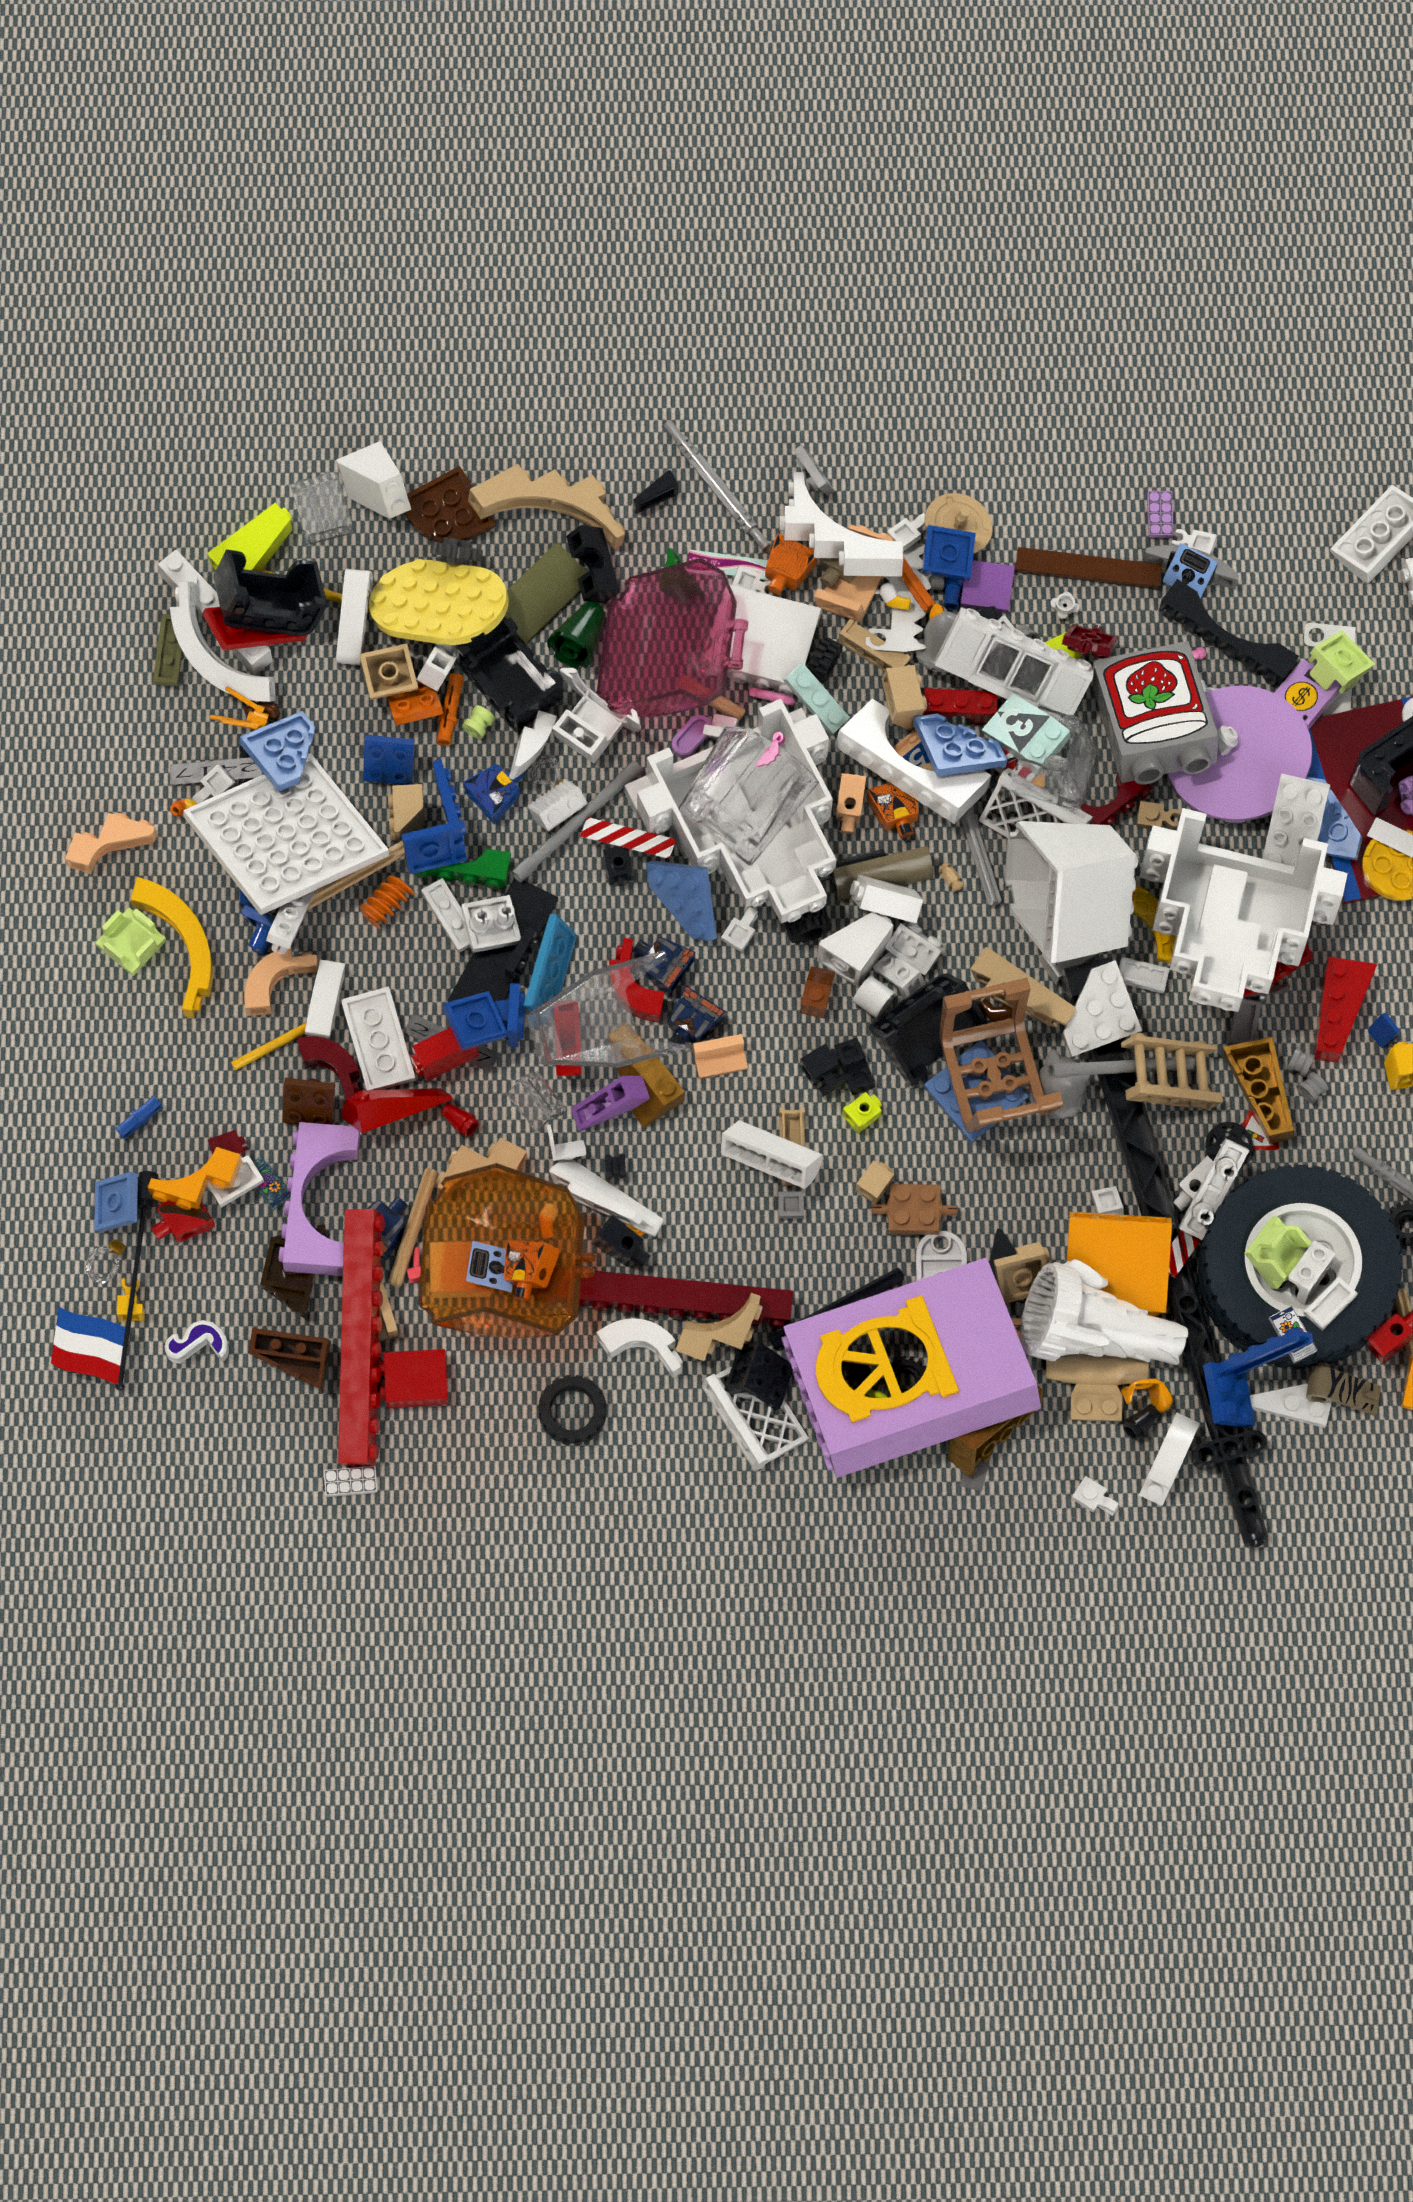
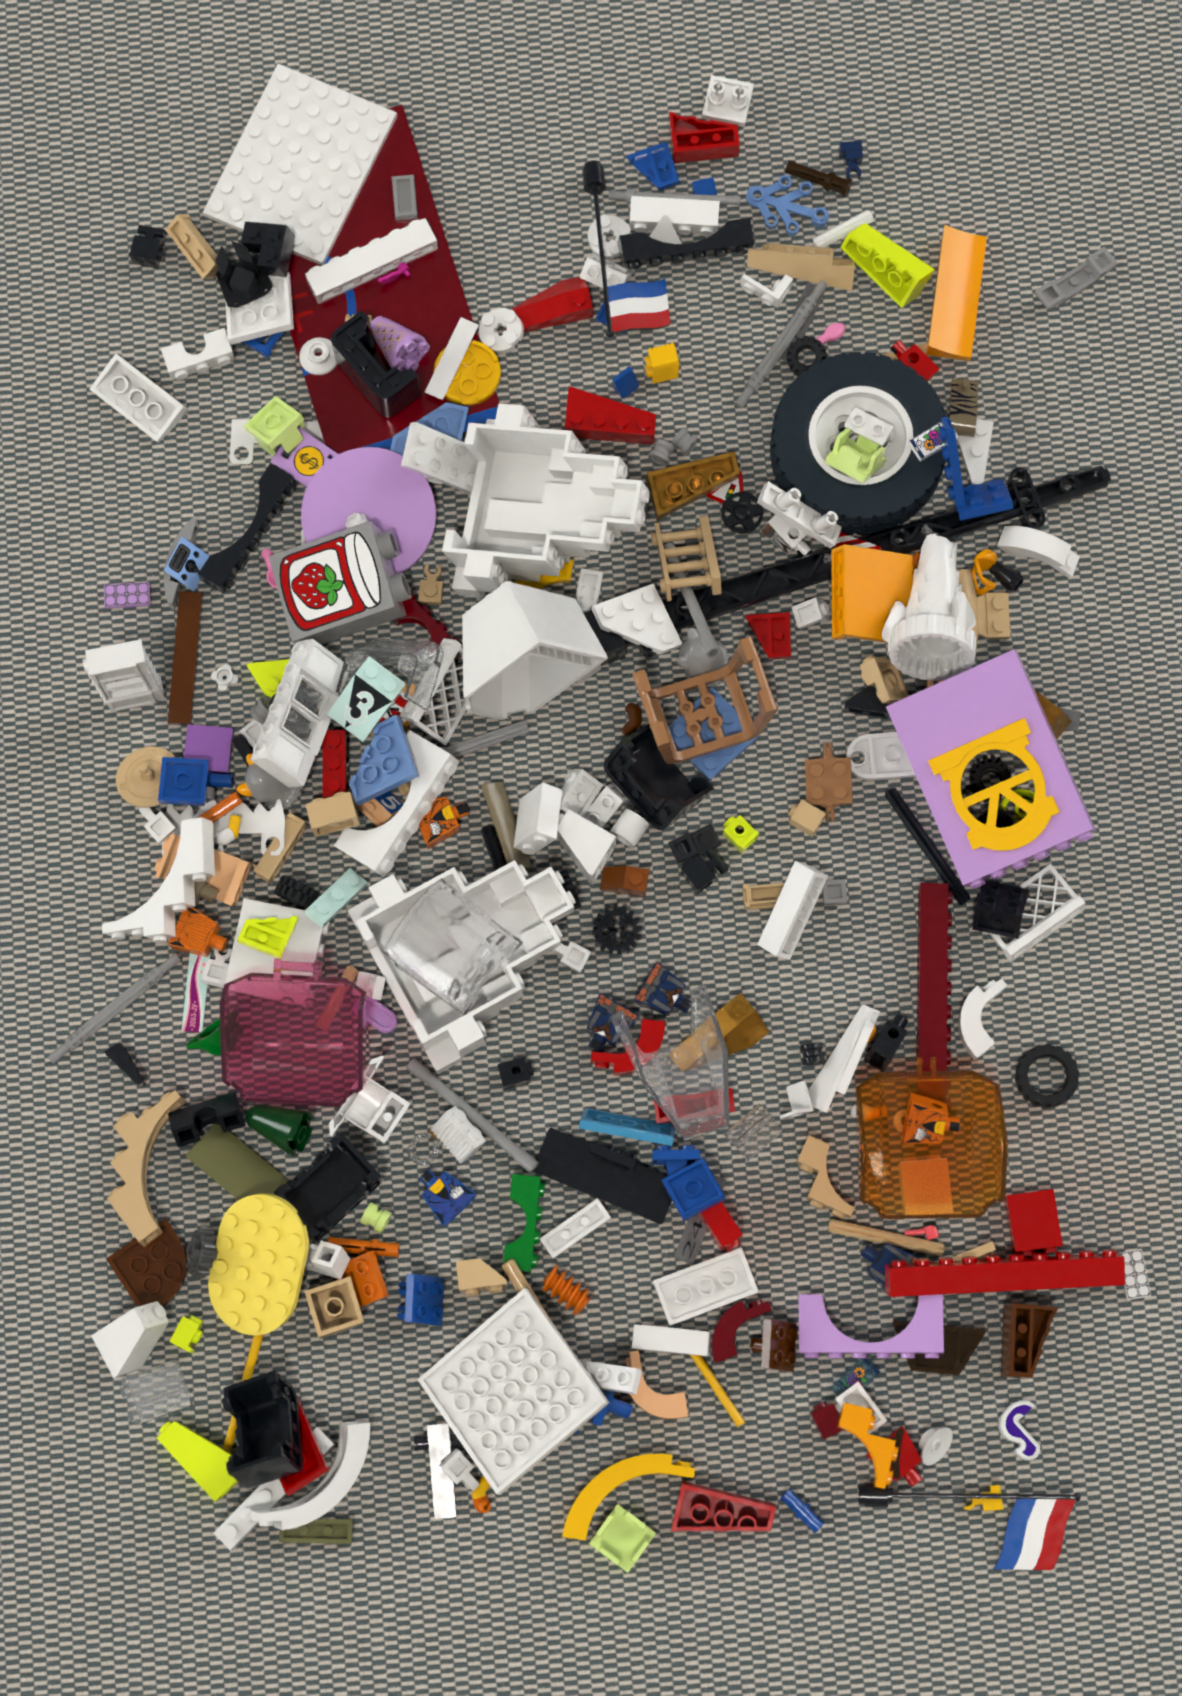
camera: 90 degrees left, 5 degrees up
(116, 1202) = (891, 1522): medium blue plate -> none
(116, 1248) = (932, 1519): clear piece -> none
(117, 834) = (514, 1563): light nougat arch -> none
(147, 1033) = (712, 1509): none -> red wedge
(190, 1254) = (935, 1444): none -> white piece
(254, 719) = (388, 1435): light orange plant -> none
(270, 708) = (375, 1422): reddish brown arm -> none
(281, 749) = (419, 1406): medium blue plate -> none
(353, 615) = (272, 1348): white beam -> none
(377, 538) = (187, 1333): none -> neon yellow brick
(380, 1107) = (777, 1267): red wedge -> none
(439, 844) = (515, 1236): blue bracket -> none
(460, 1120) = (778, 1202): red cone -> none
(487, 1266) = (927, 1159): sticker -> none
(491, 923) = (585, 1186): white plate -> none
(532, 742) = (398, 1162): white slope -> none
(610, 1101) = (753, 1061): medium lavender slope -> none
(628, 837) = (490, 1063): sticker -> none
(686, 895) = (543, 1005): medium blue plate -> none
(701, 1338) = (971, 963): tan arch -> none
(720, 1056) = (696, 965): light nougat panel -> none
(753, 968) = (608, 940): none -> black gear
(771, 696) = (333, 937): bright pink piece -> none
(773, 751) = (409, 927): piece -> none
(779, 627) = (268, 934): none -> neon yellow wing
(817, 477) = (90, 921): light grey plate -> none
(850, 793) = (429, 858): light nougat torso -> none
(951, 876) = (503, 767): tan piece -> none
(1042, 1002) = (618, 694): tan wedge -> none
(1057, 487) = (124, 675): none -> white window
(1085, 1165) = (773, 633): none -> red wing
(1090, 640) = (267, 647): dark red plate -> none
(1091, 1496) = (1077, 616): white plate -> none
(1198, 540) = (156, 559): white plate -> none
(1330, 1303) = (901, 409): white tile -> none

